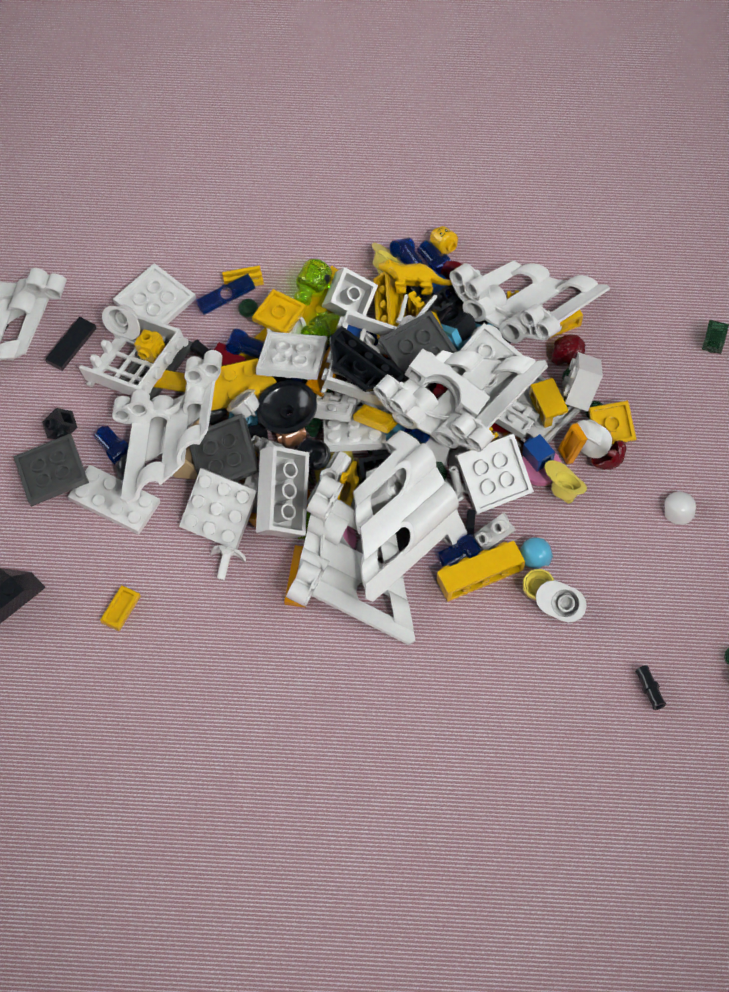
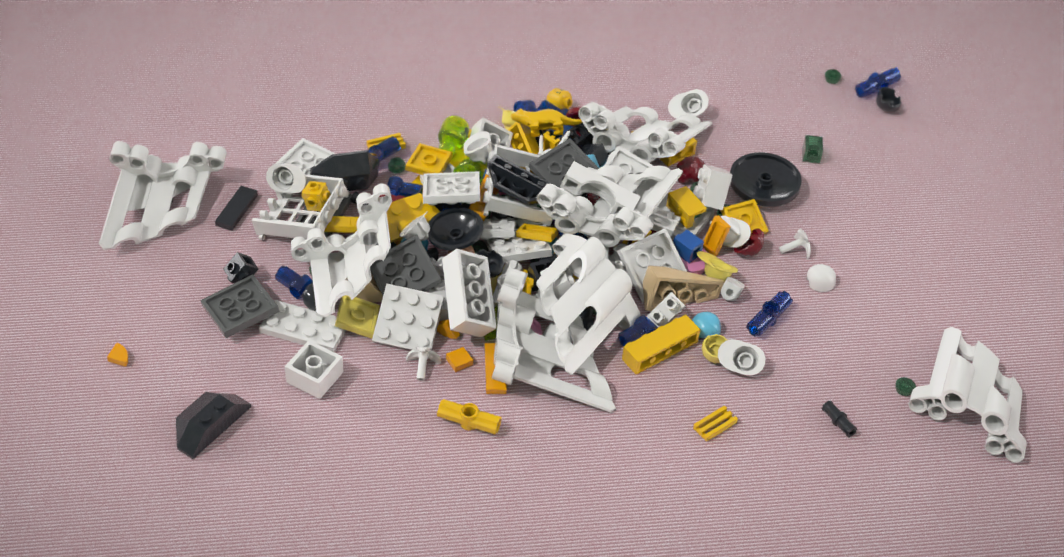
camera: 15 degrees left, 15 degrees down
(111, 556) = (314, 369): none -> white brick
(120, 608) = (329, 414): yellow tile -> none
(169, 497) = (357, 316): none -> light yellow tile
(193, 315) = (356, 168): none -> black wedge
(265, 560) = (459, 359): none -> light orange tile
(269, 639) = (469, 416): none -> yellow piece
(332, 305) = (478, 146): none -> white piece
(470, 522) = (642, 304): black tile -> none
(516, 502) = (686, 286): none -> tan wedge
(532, 665) = (712, 421): none -> yellow tile
(575, 510) = (731, 289): none -> white piece
(586, 262) = (690, 103): none -> white piece
(599, 554) = (769, 313): none -> clear blue piece
(648, 373) = (766, 179): none -> black dish
(670, 459) = (801, 240): none -> white plant

